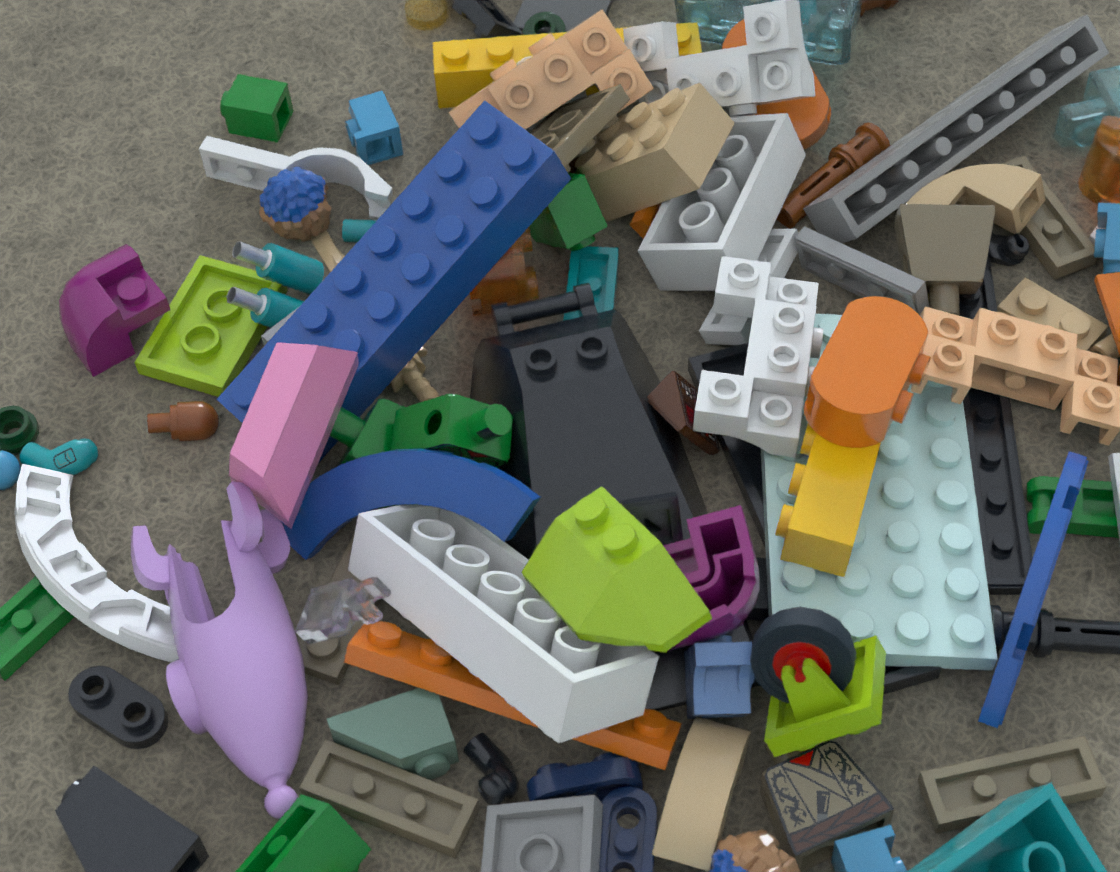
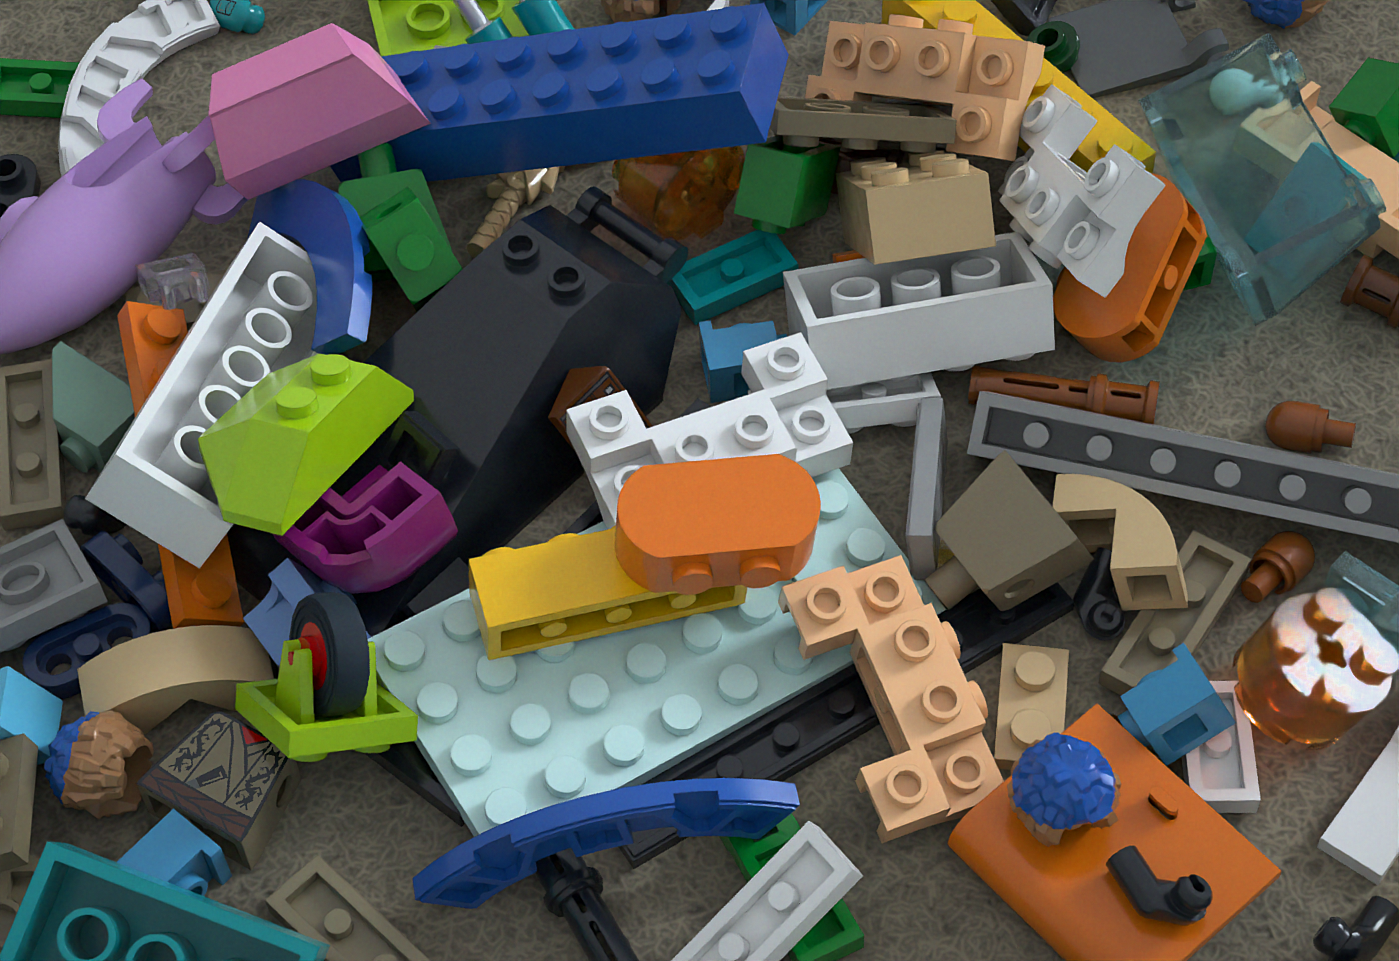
camera: 55 degrees right, 0 degrees up
(672, 319) = (723, 355): none -> dark azure brick
(939, 82) = (1305, 427): none -> dark orange cylinder
(1029, 141) = (1283, 557): none -> dark orange cylinder

